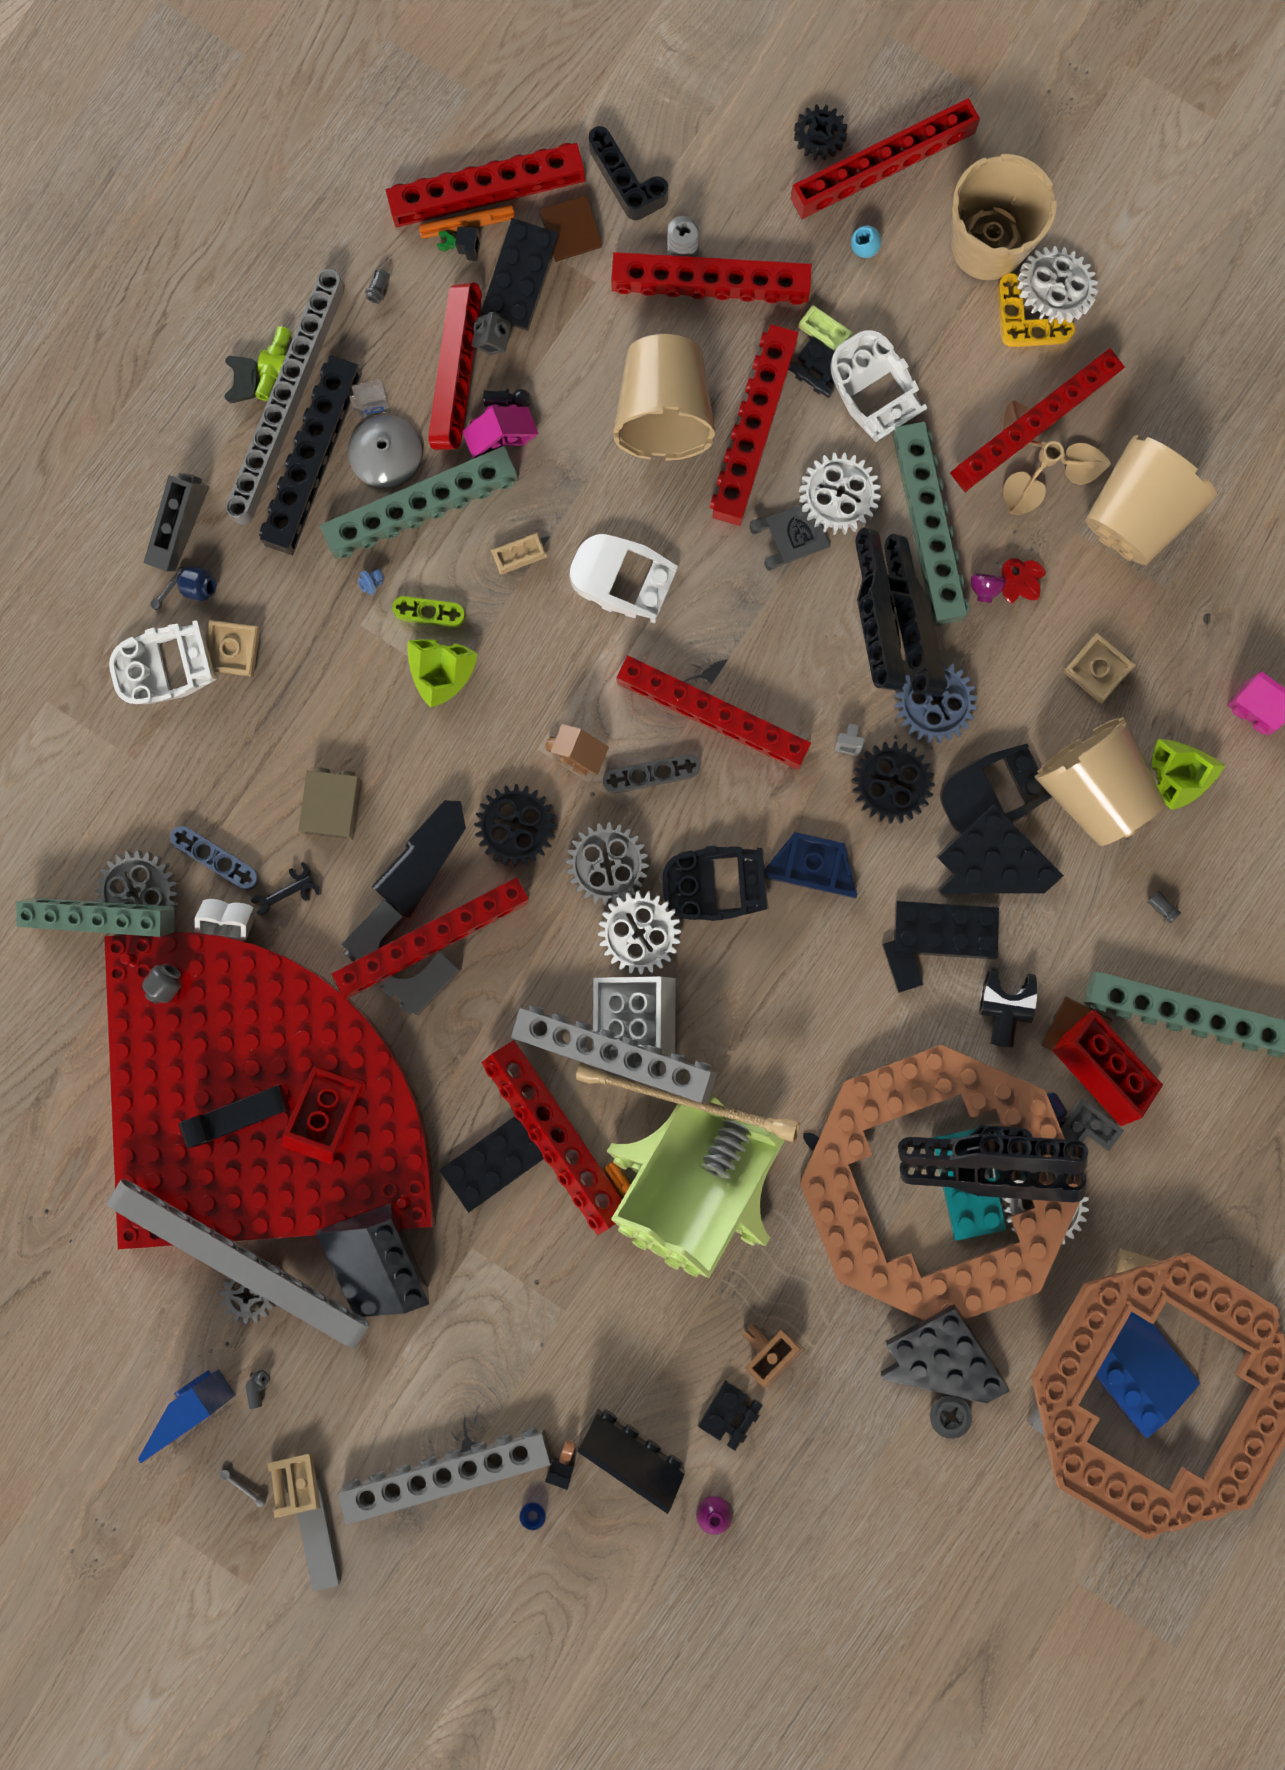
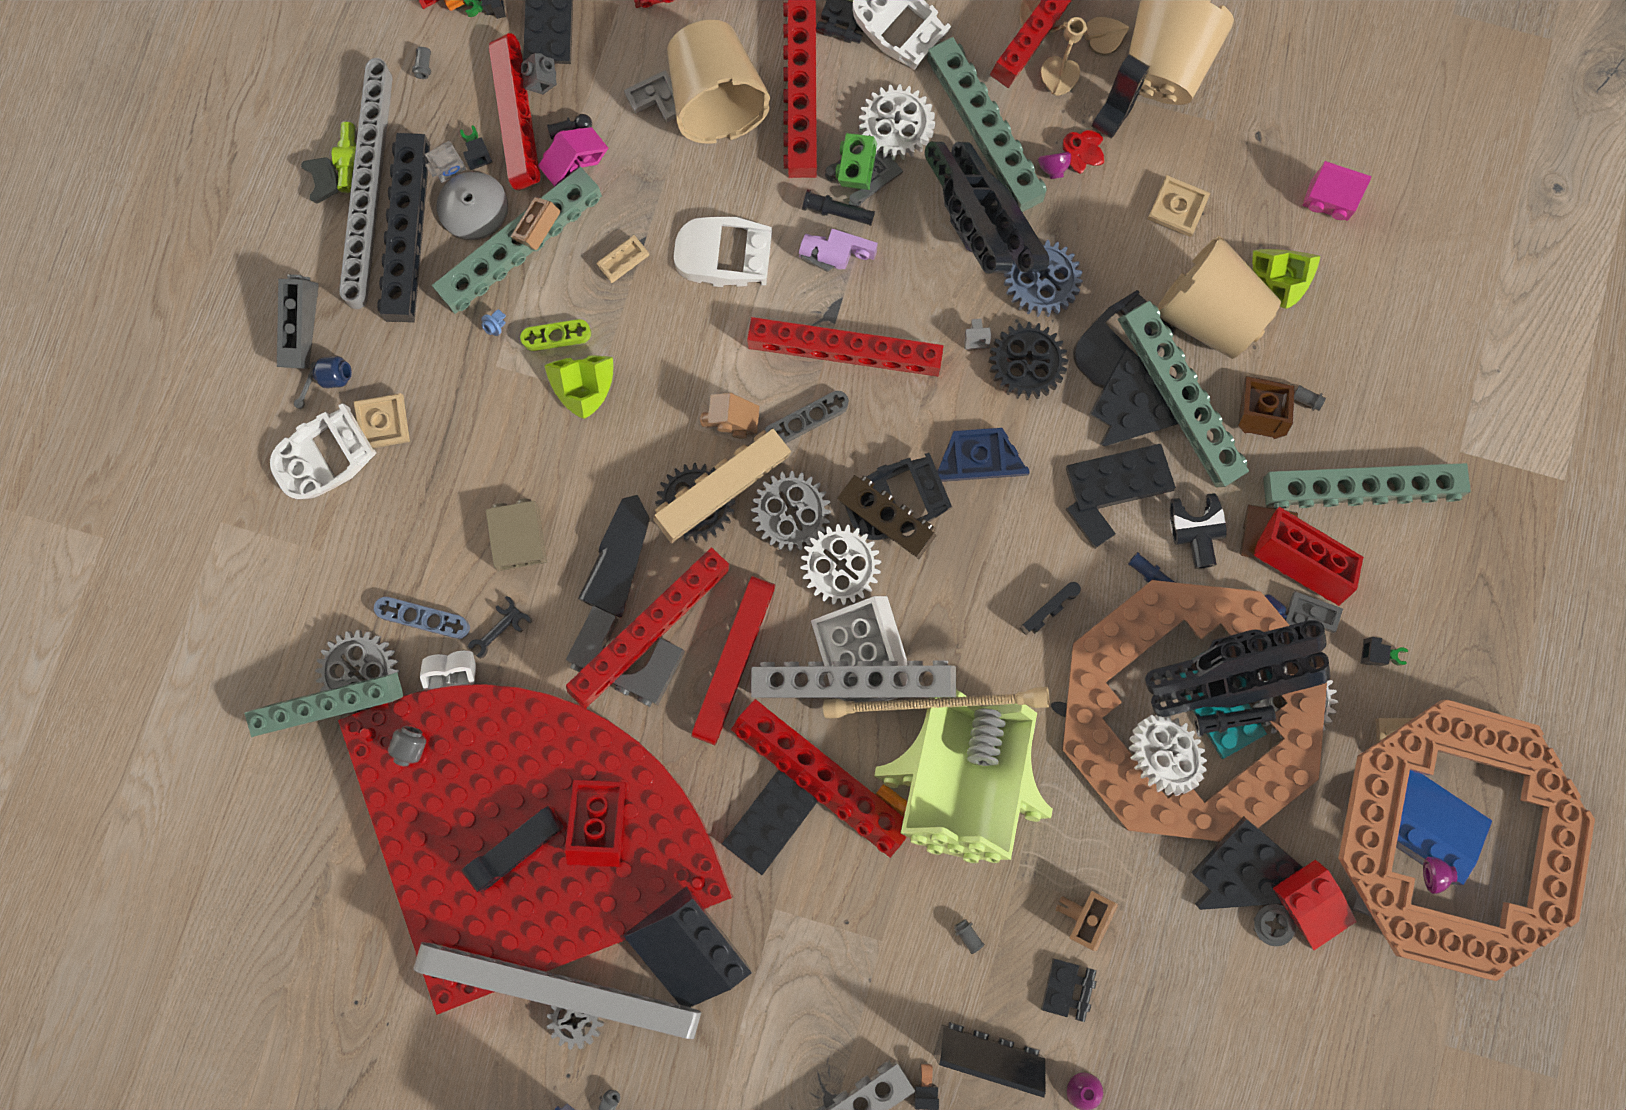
camera: 20 degrees left, 5 degrees down
(406, 395) = (477, 151): none -> black piece
(441, 492) = (536, 223): none -> medium nougat slope
(505, 994) = (733, 660): none -> red beam
(545, 818) = (721, 485): none -> tan brick
(600, 386) = (653, 91): none -> light grey plate
(650, 1334) = (968, 936): none -> dark grey pin
(671, 870) = (915, 543): none -> dark brown brick
(734, 610) = (836, 250): none -> lavender plate
(741, 560) = (826, 206): none -> black pin
(791, 526) = (863, 161): none -> bright green brick
(834, 1039) = (1052, 607): none -> black plate
(893, 1241) = (1167, 754): none -> white gear
(944, 1033) = (1147, 569): none -> dark blue pin
(963, 1206) = (1222, 721): none -> black pin
(995, 1410) = (1315, 904): none -> red slope
(1007, 782) = (1171, 390): none -> sand green brick
(1075, 540) = (1122, 96): none -> black beam
(1117, 903) = (1266, 407): none -> reddish brown slope
(1124, 1421) = (1438, 875): none -> magenta brick
(1145, 1187) = (1379, 654): none -> black piece

